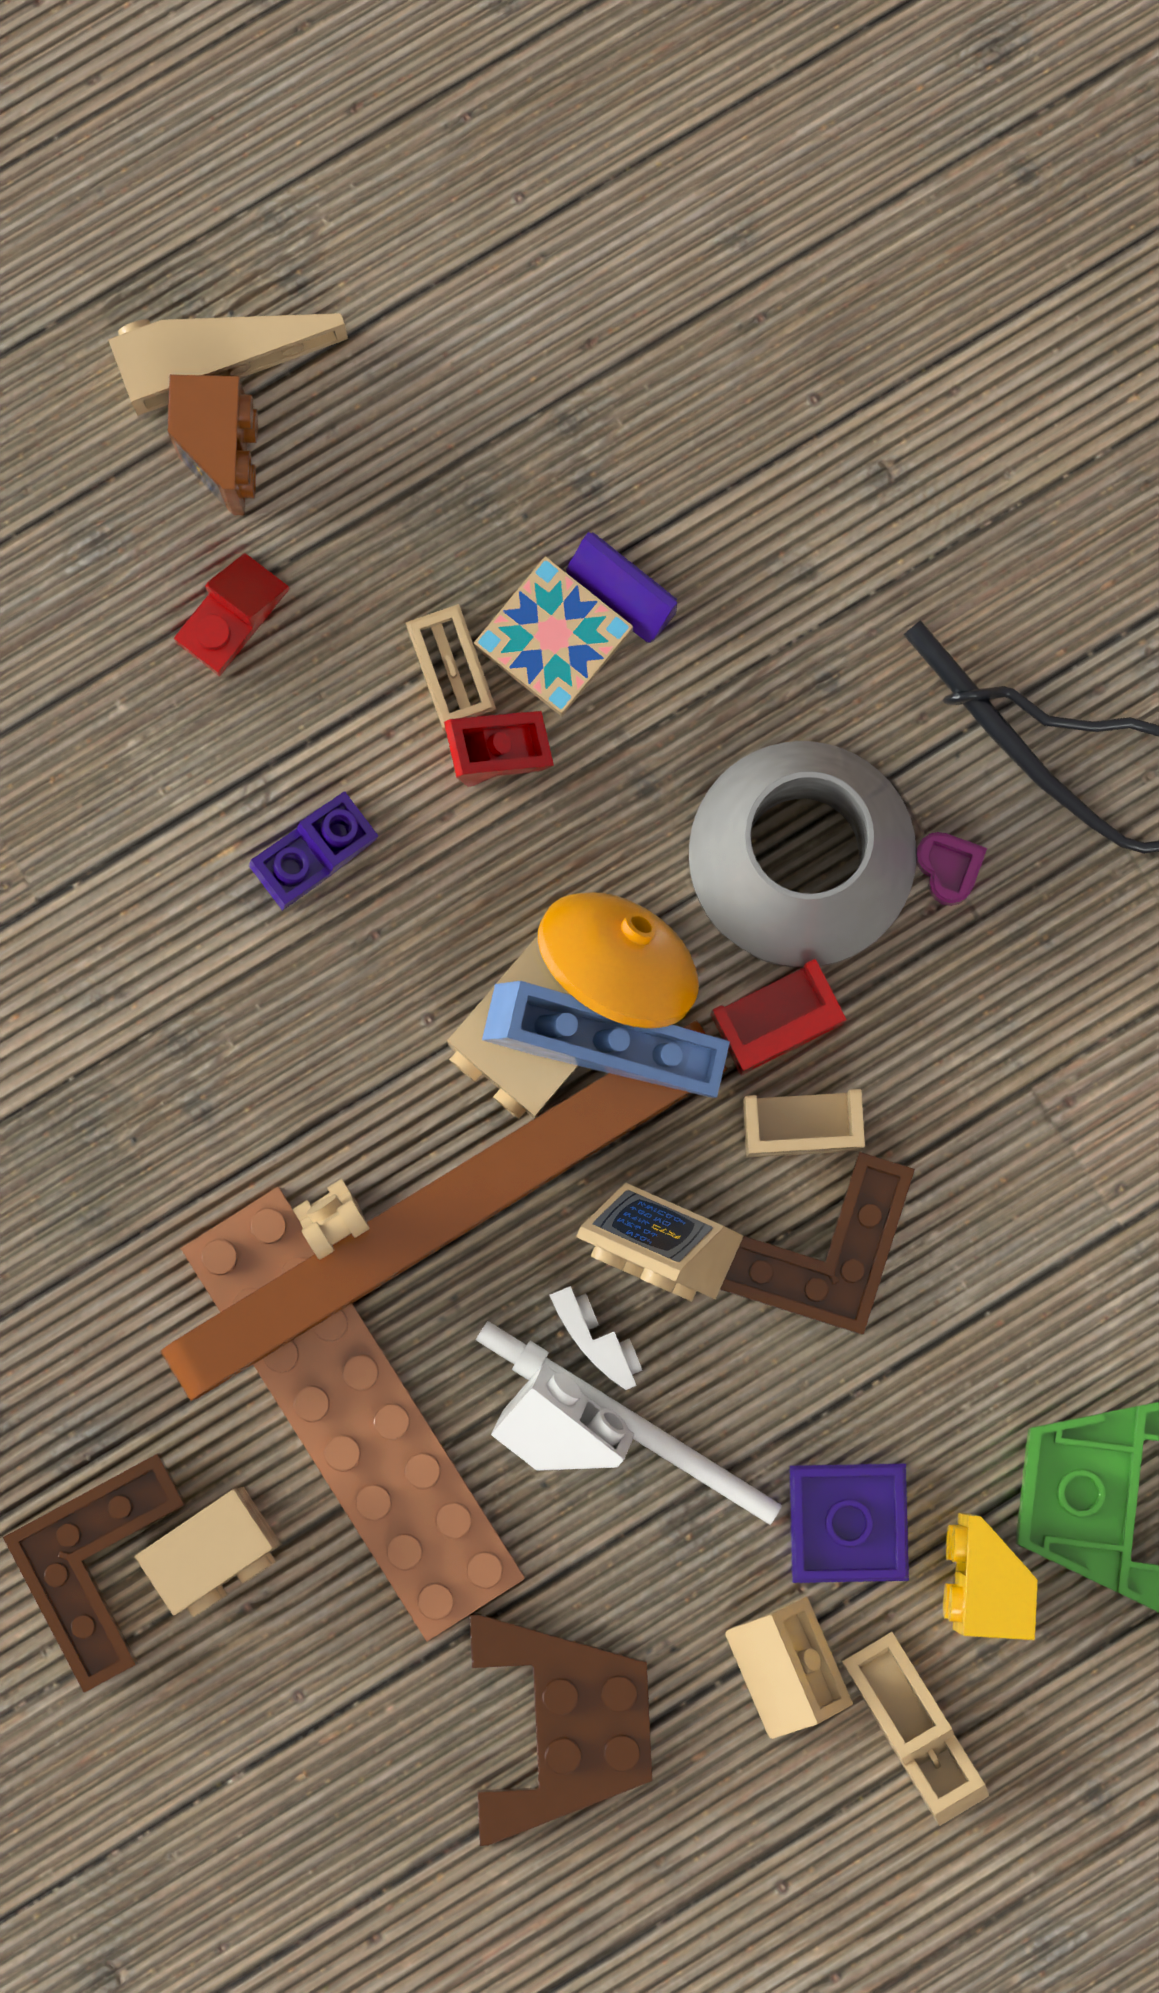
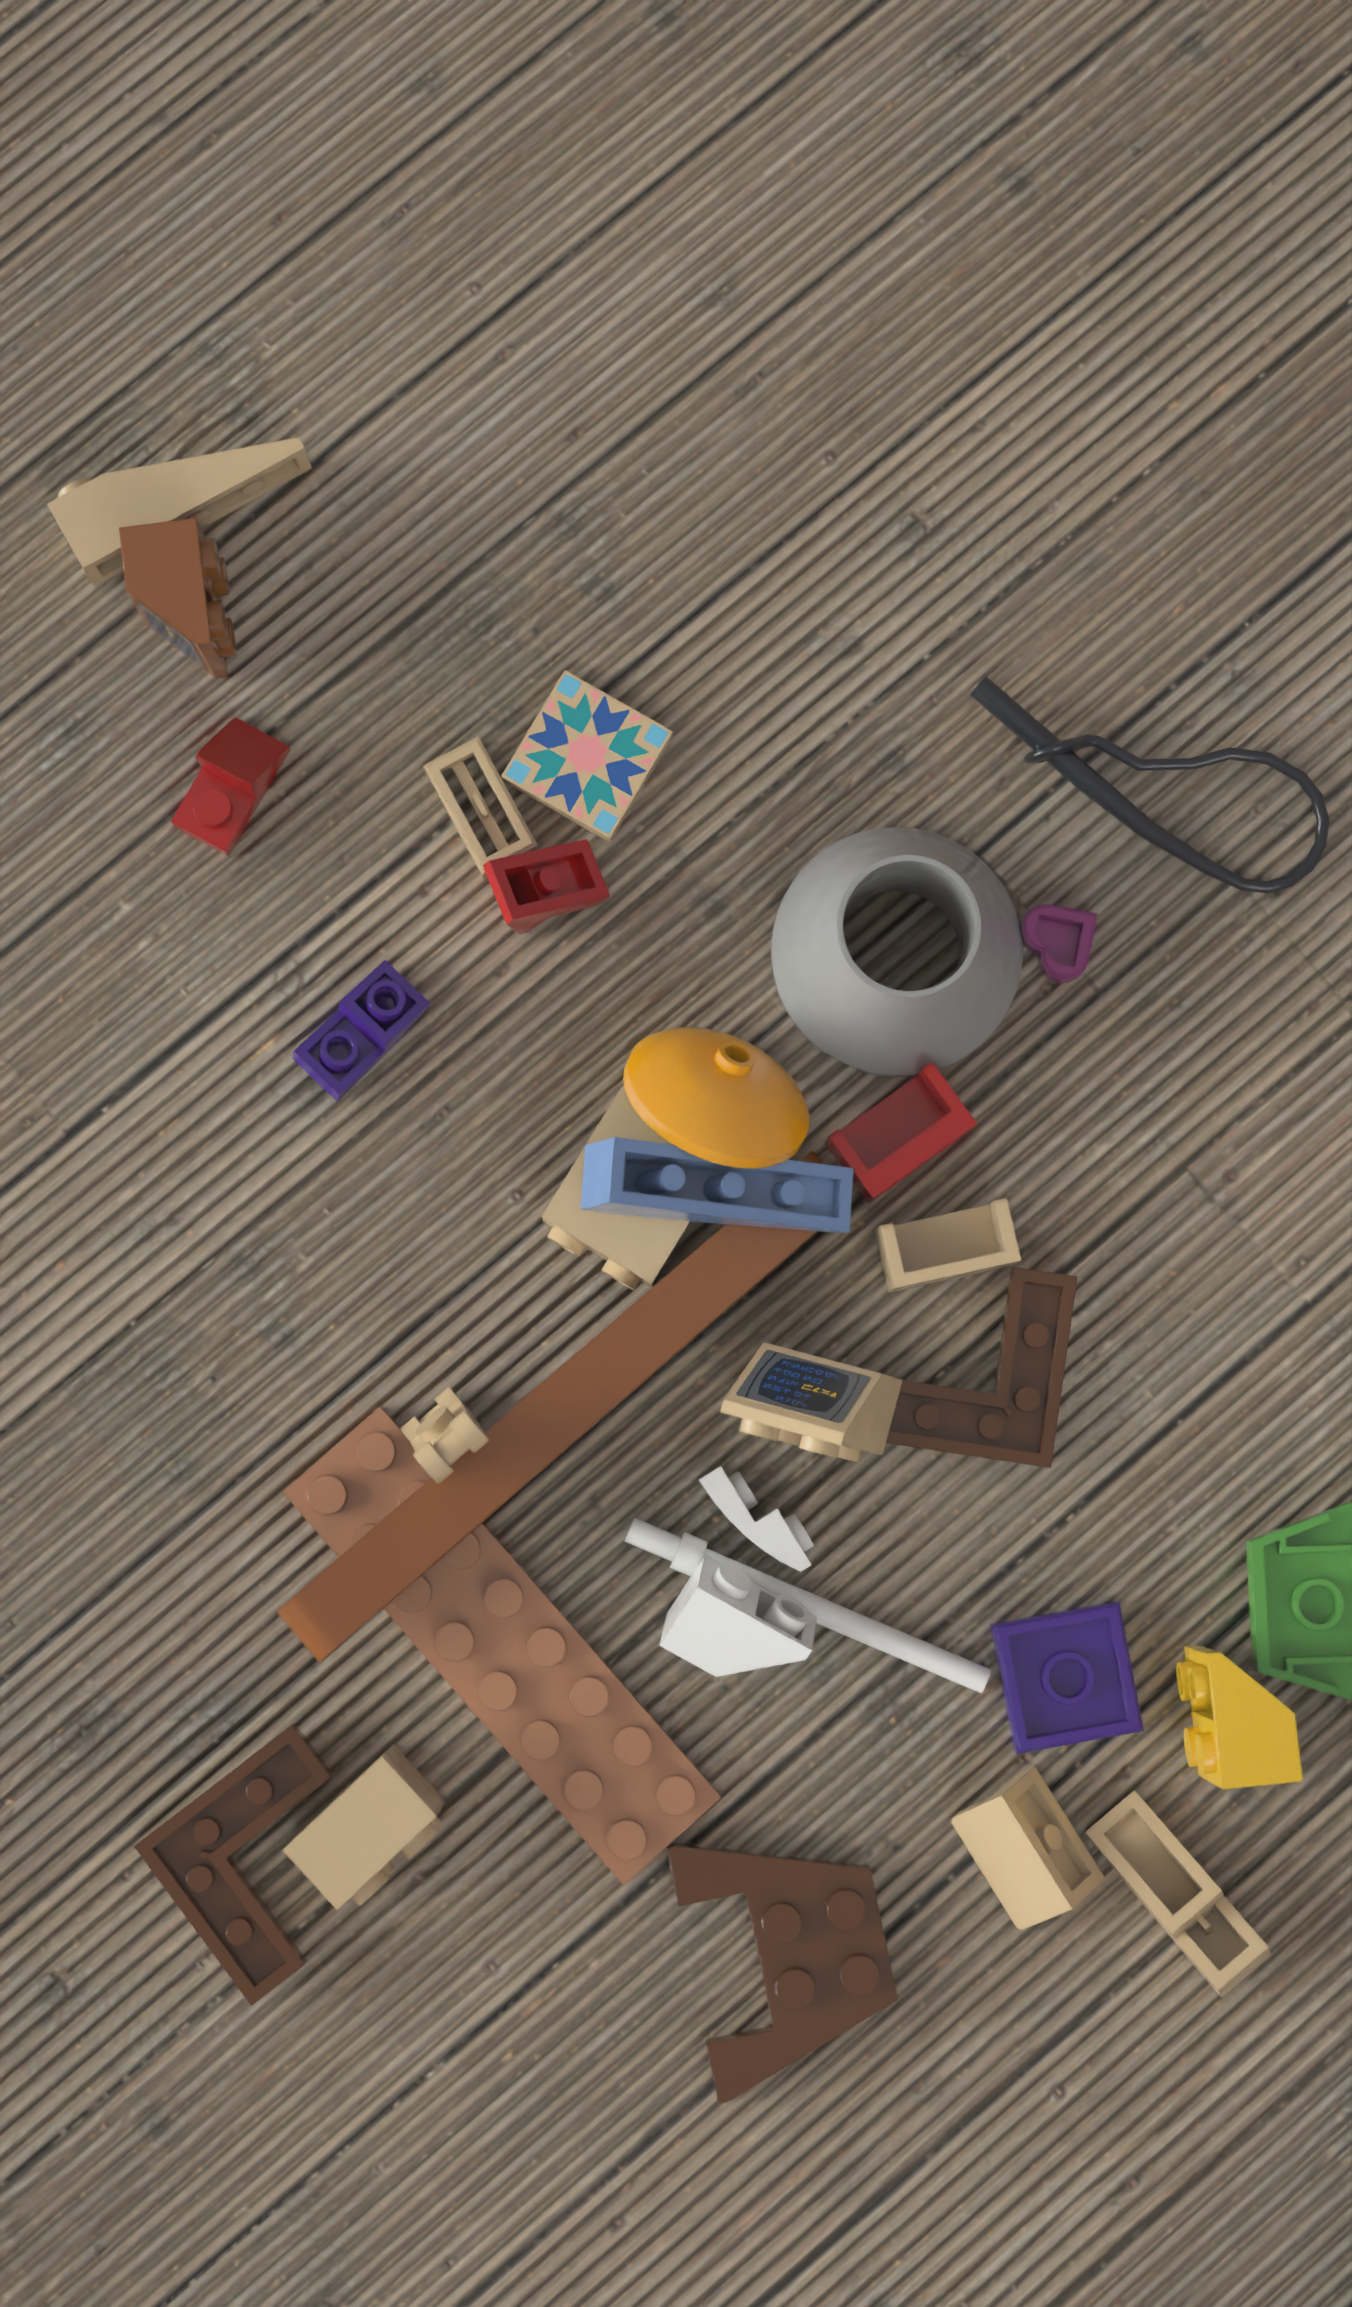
camera: 15 degrees left, 0 degrees up
(622, 587) = (655, 689): dark purple slope -> none

